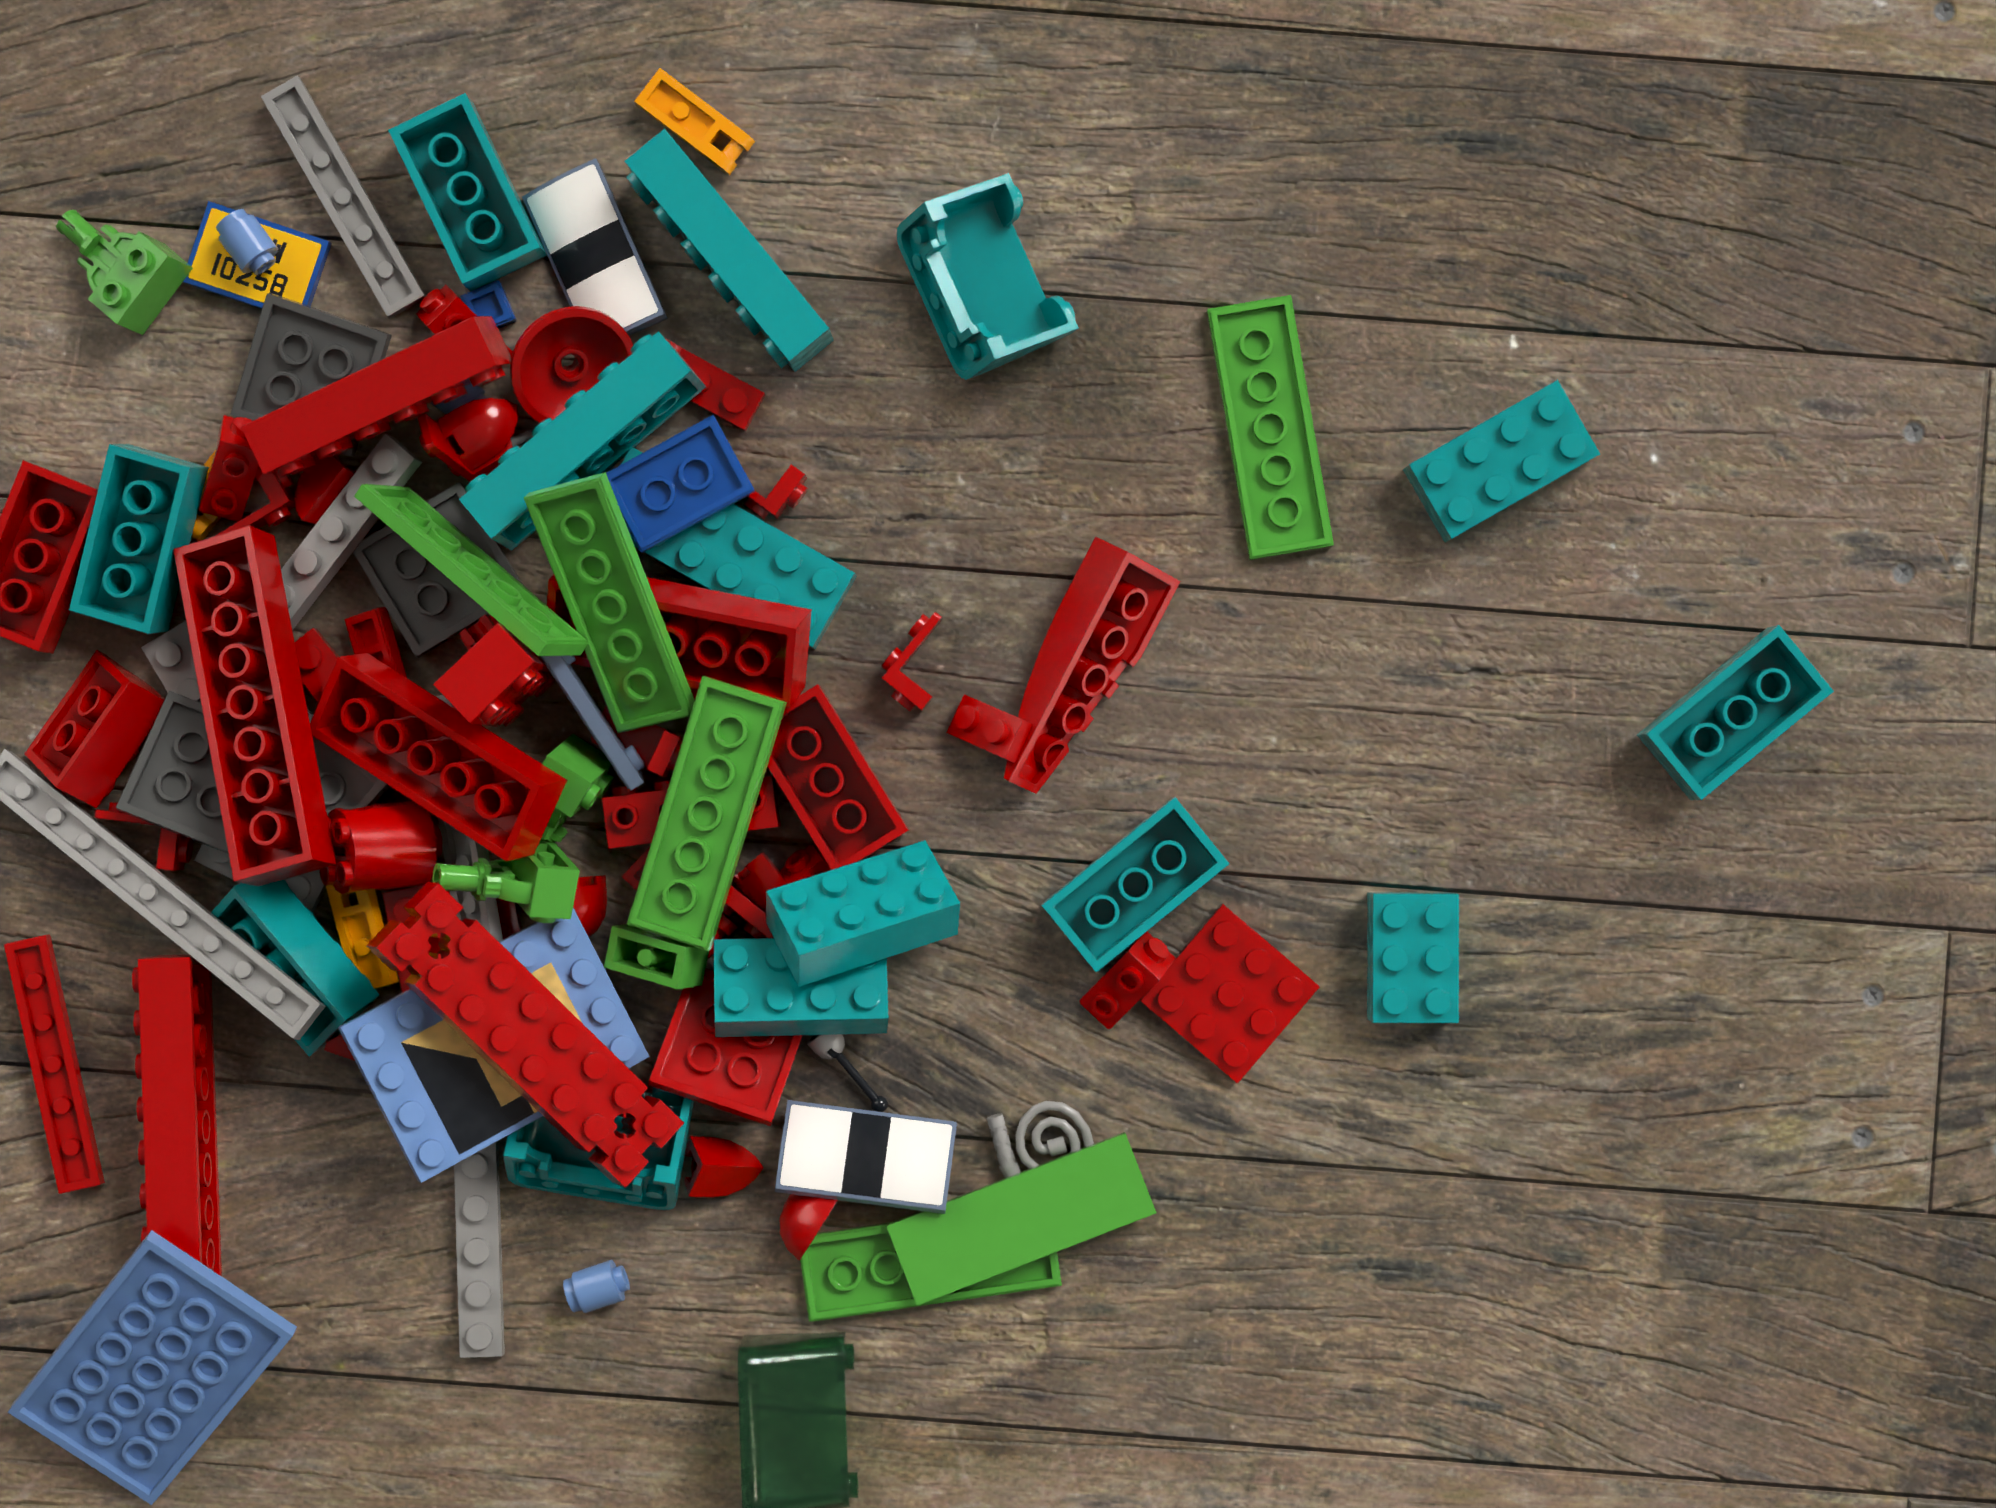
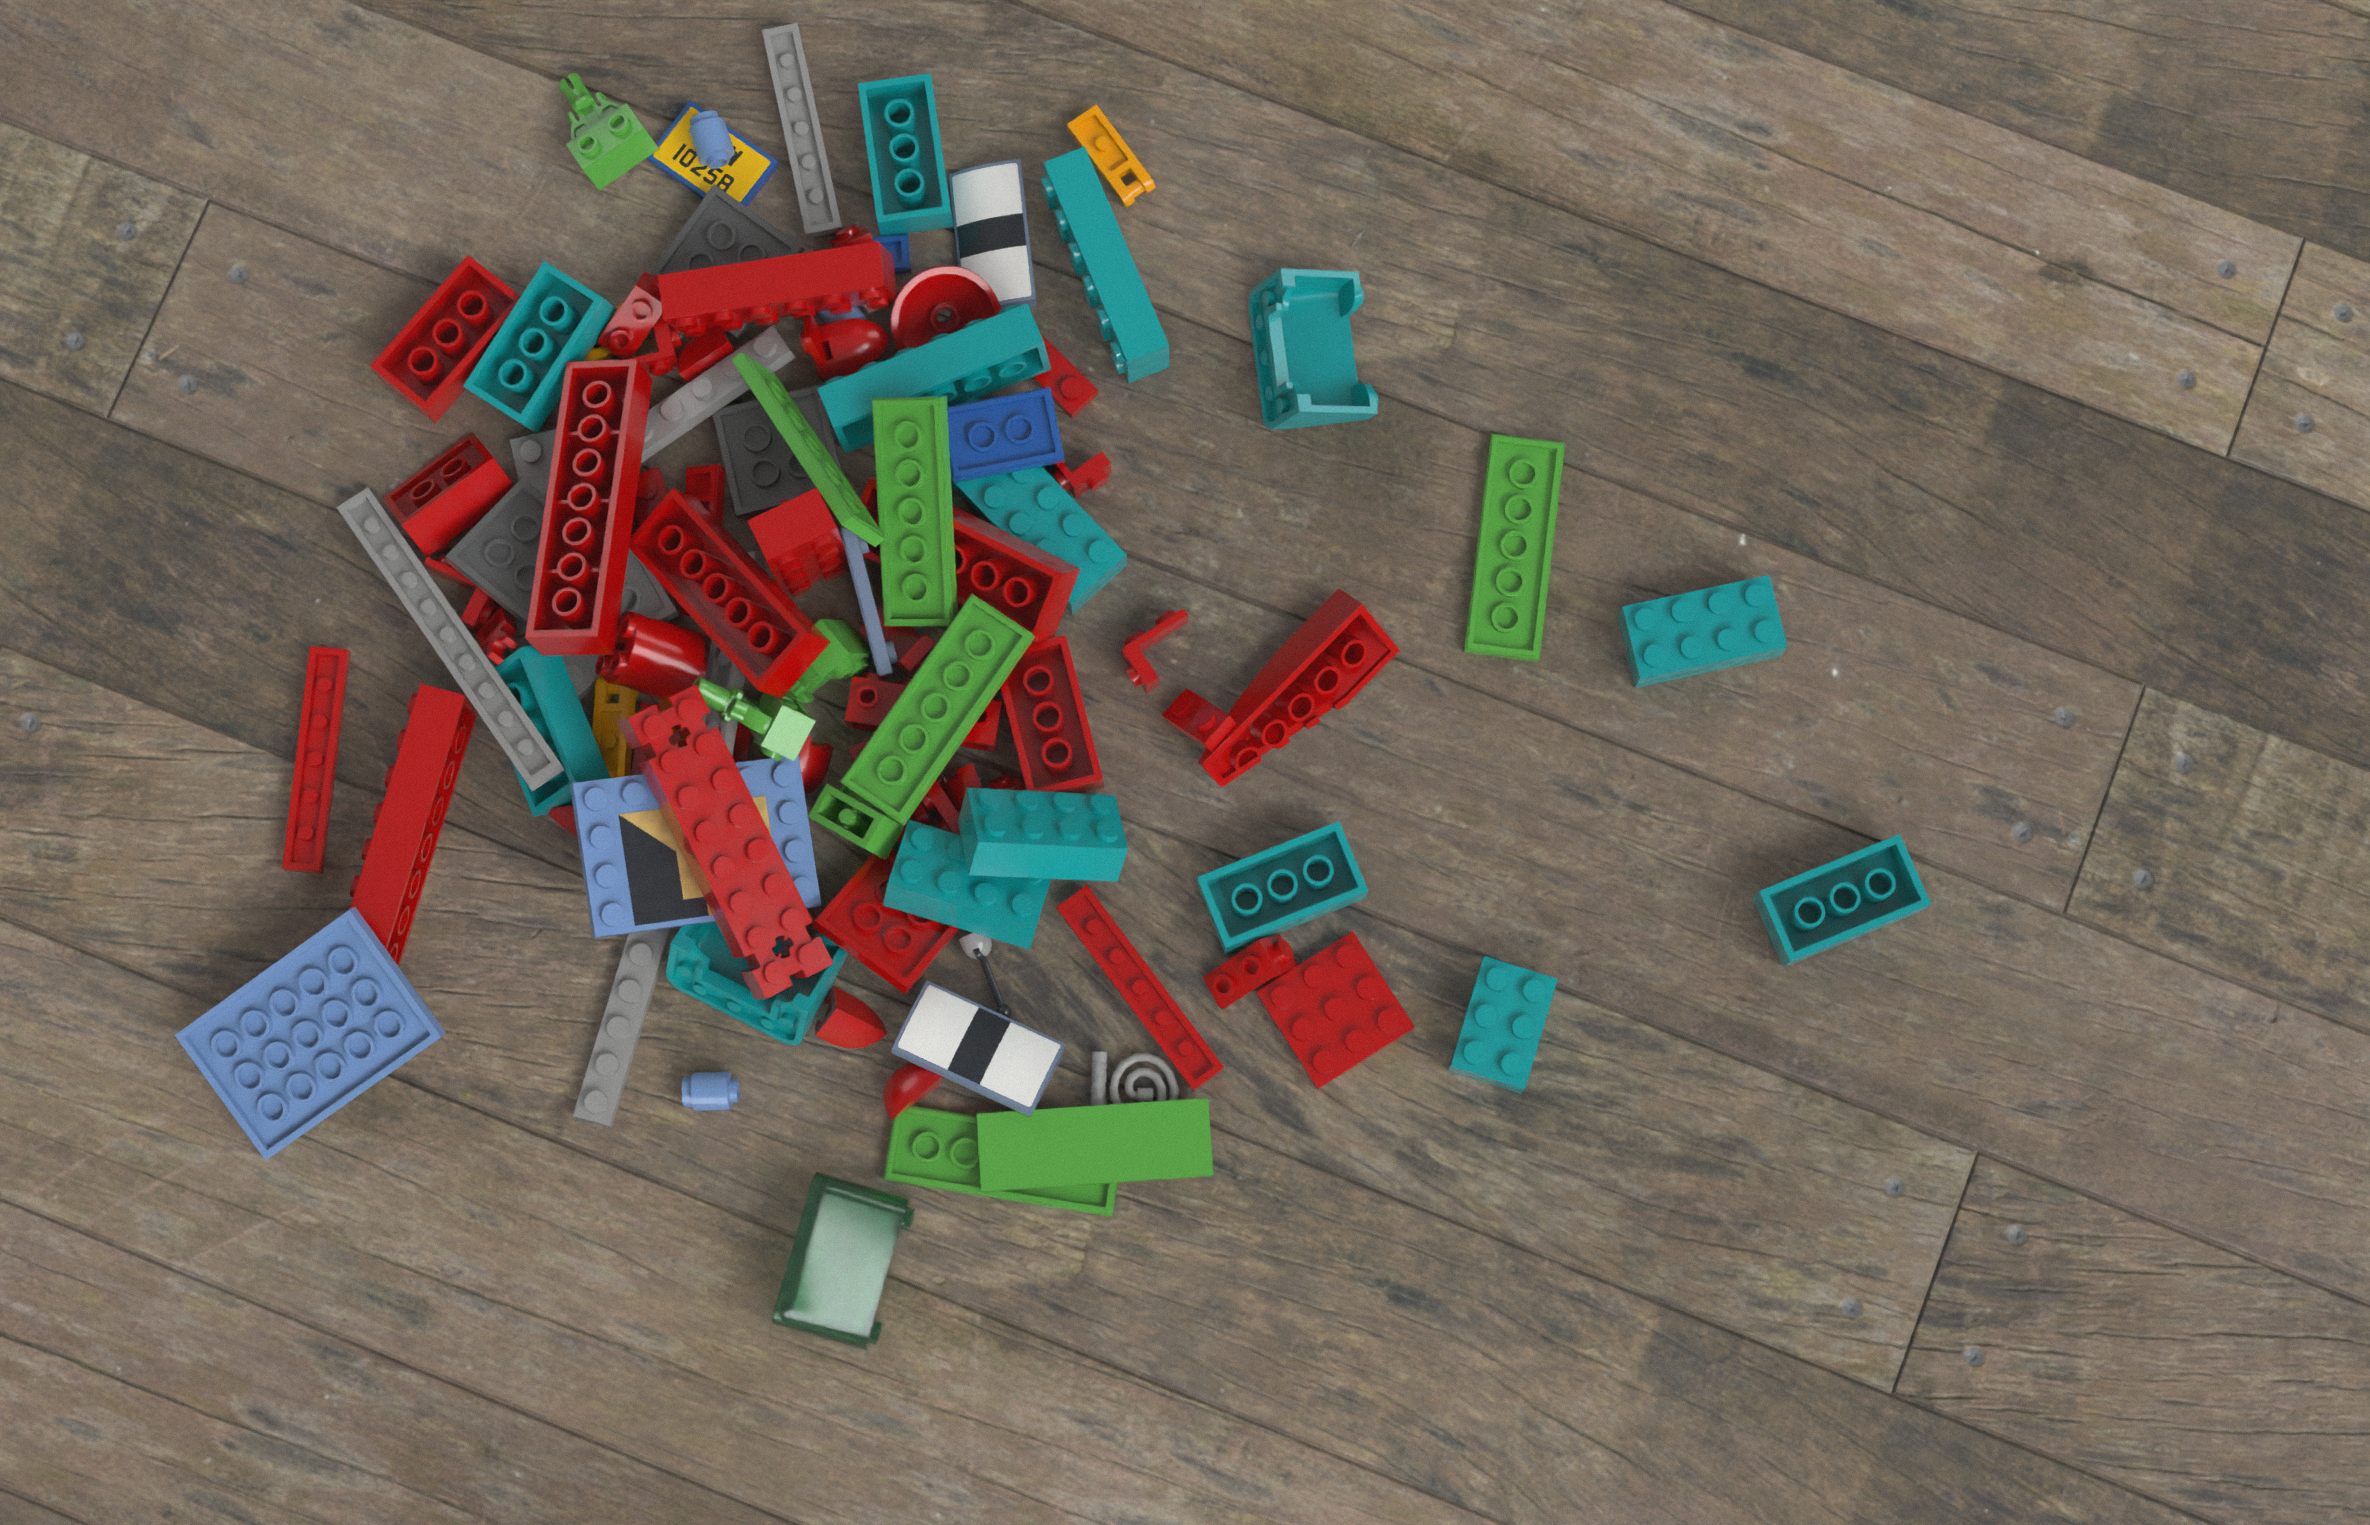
camera: 15 degrees right, 10 degrees down
(202, 875) = (498, 635): none -> red plate
(1016, 1035) = (1140, 988): none -> red plate

